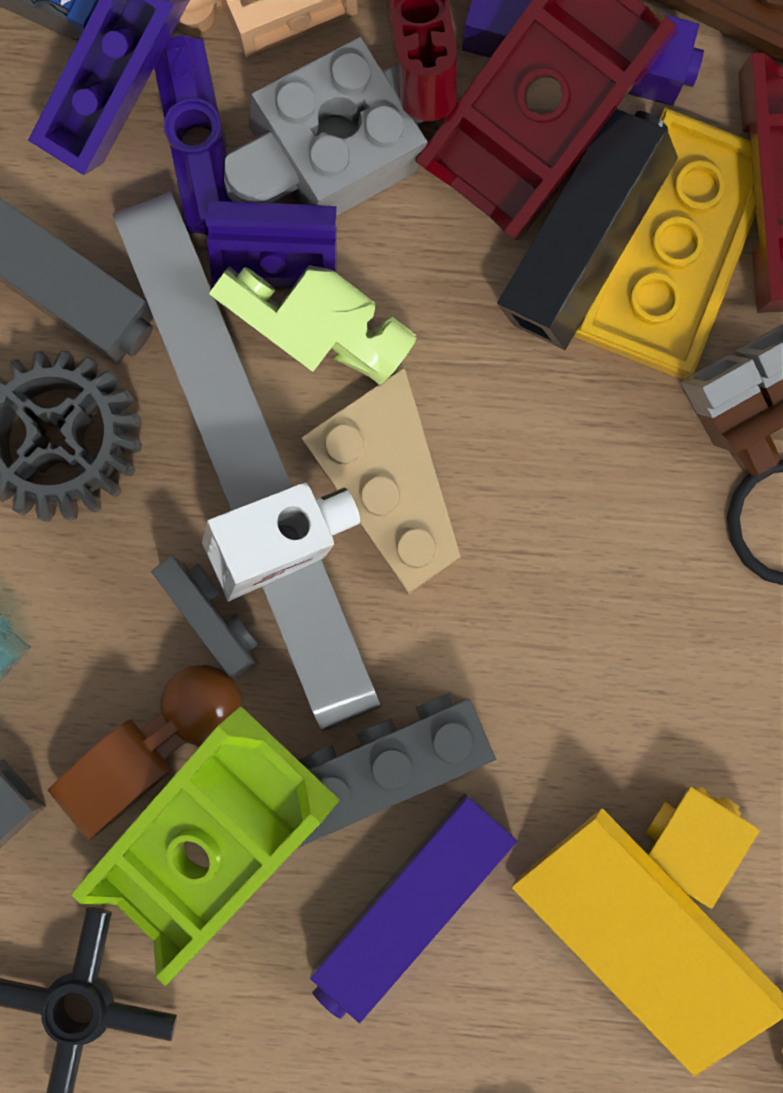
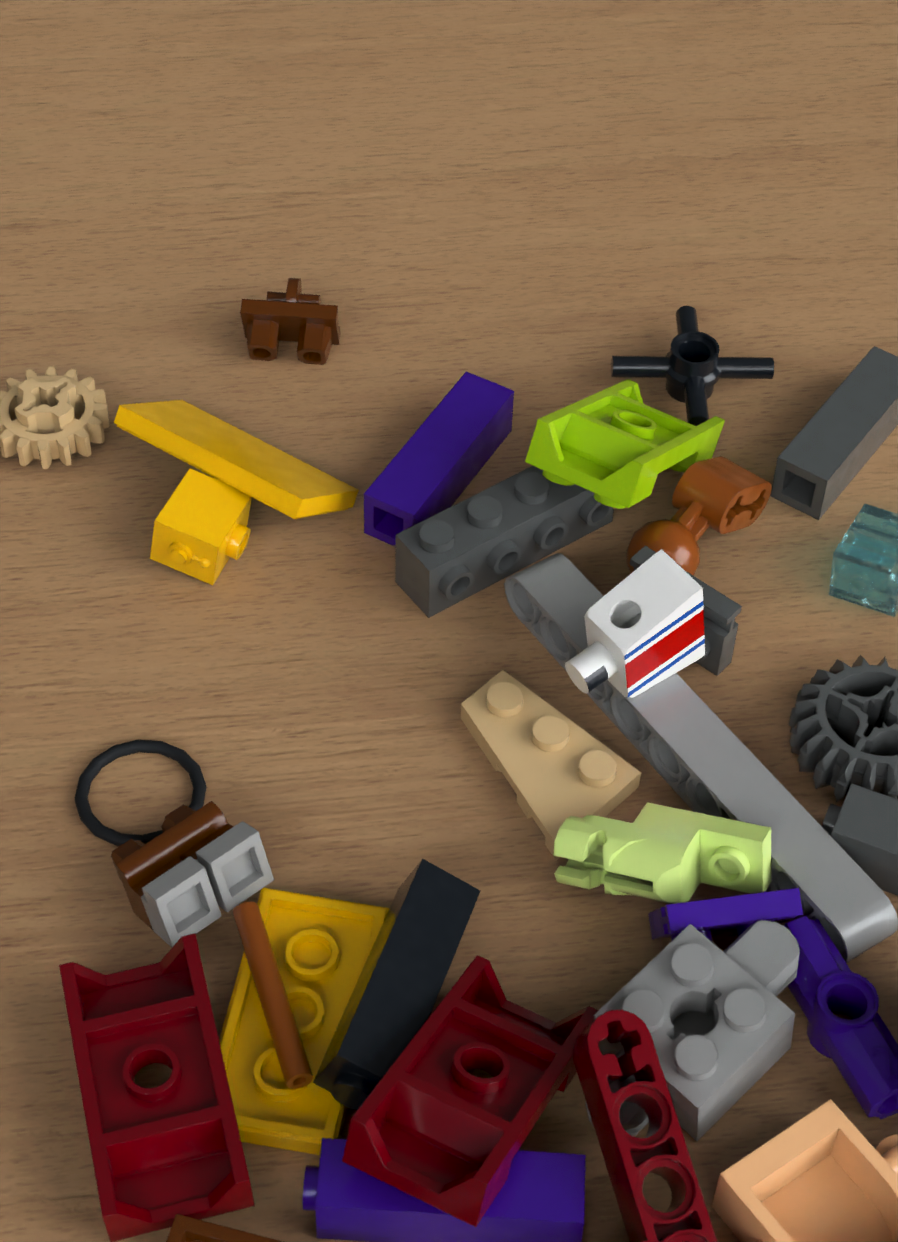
camera: 170 degrees right, 35 degrees down
(701, 251) = (272, 996): none -> dark orange piece

